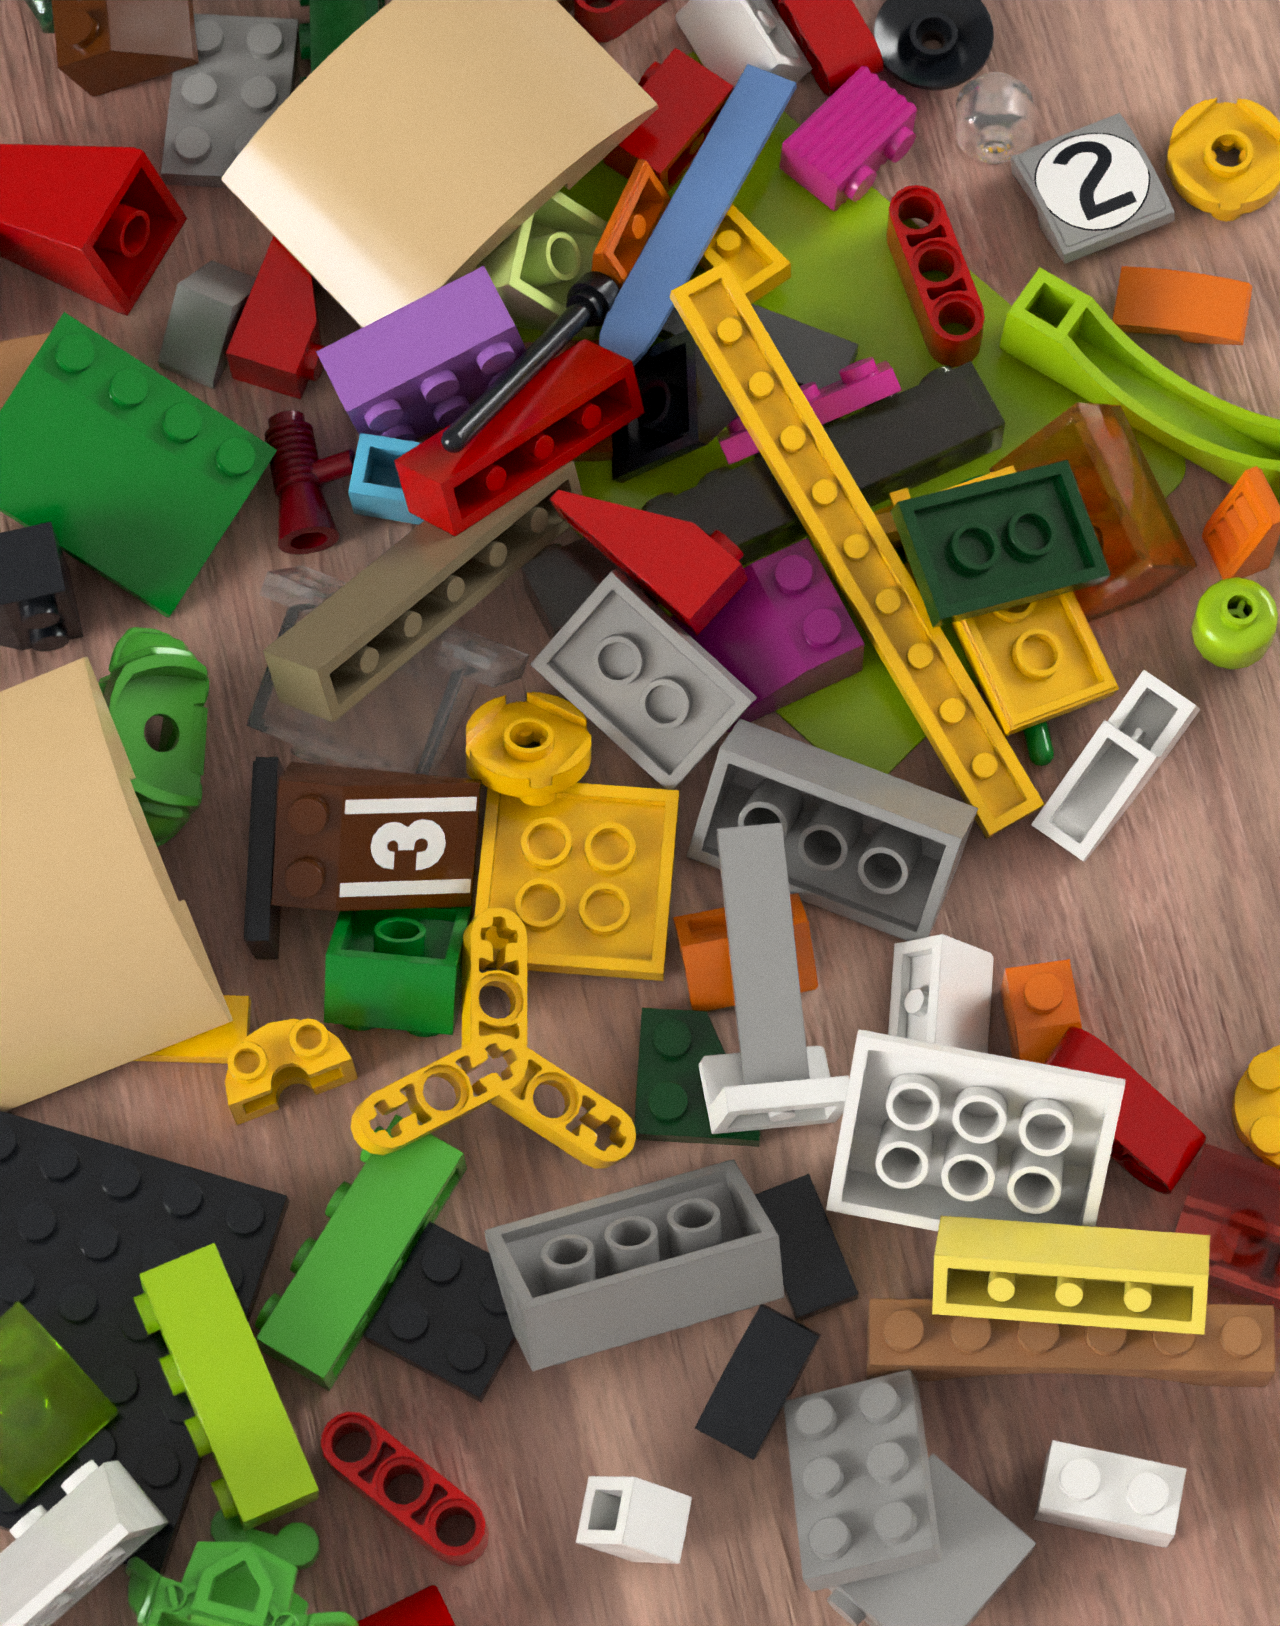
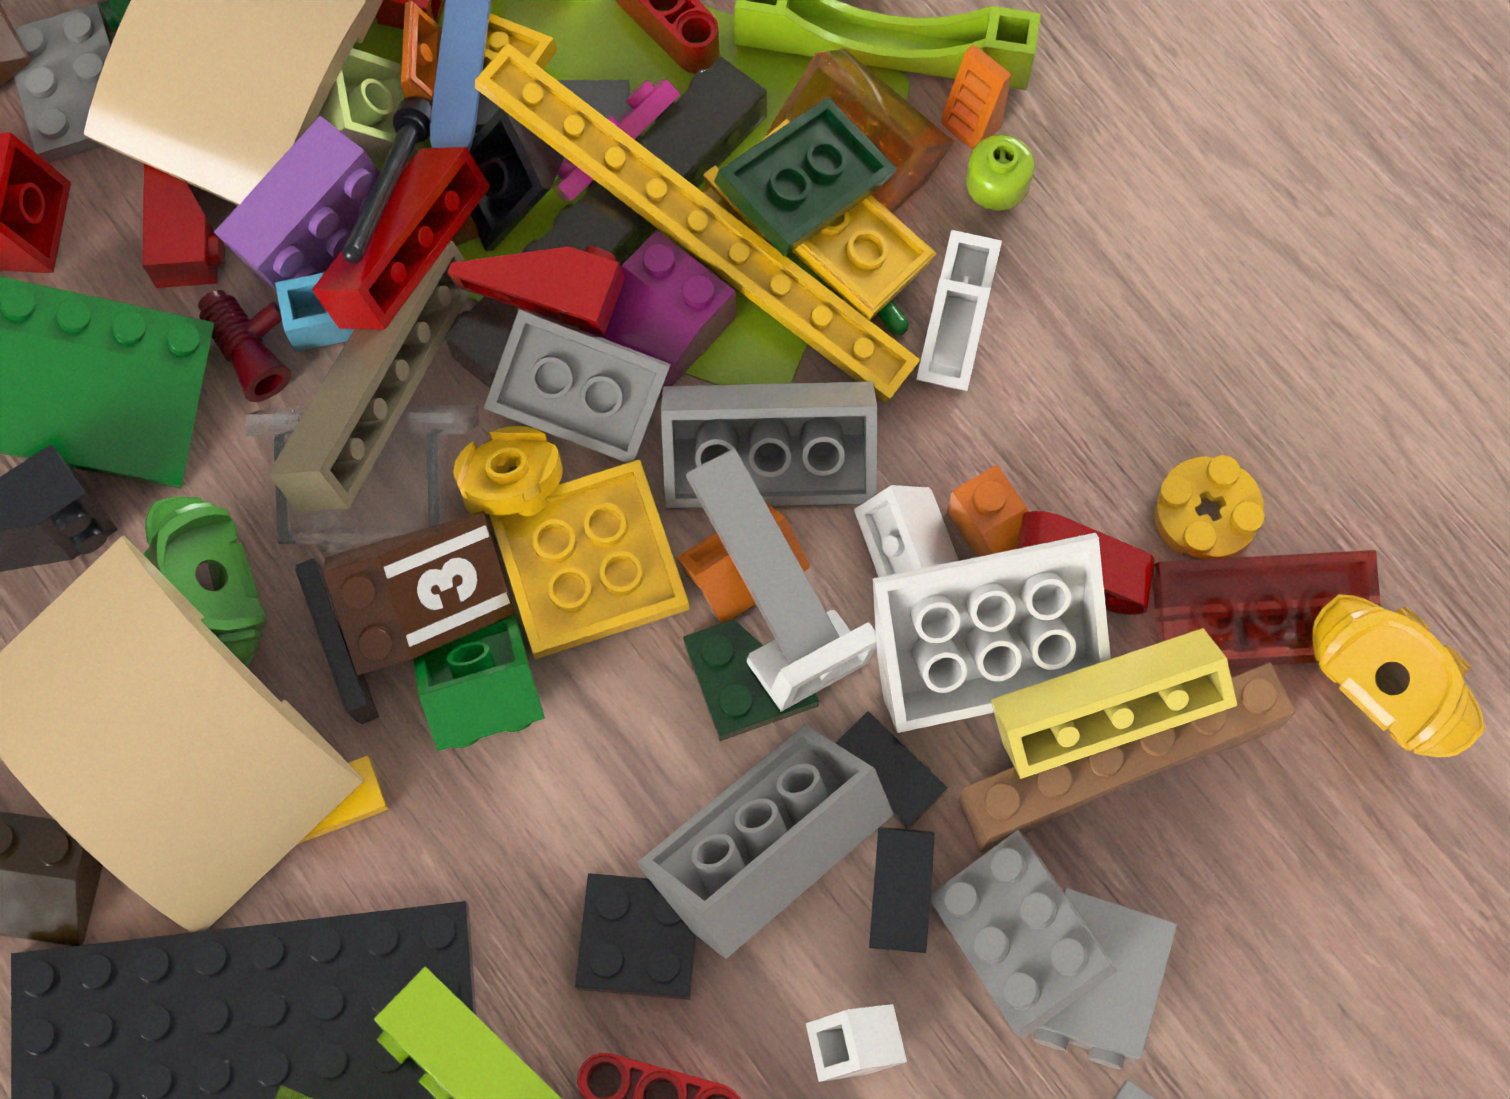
camera: 25 degrees left, 0 degrees up
(204, 321) = (115, 253): light grey slope -> none
(283, 1056) = (416, 791): yellow cylinder -> none
(357, 1256) = (543, 922): bright green brick -> none
(499, 1038) = (611, 737): yellow piece -> none
(1110, 1494) = (1211, 860): white brick -> none

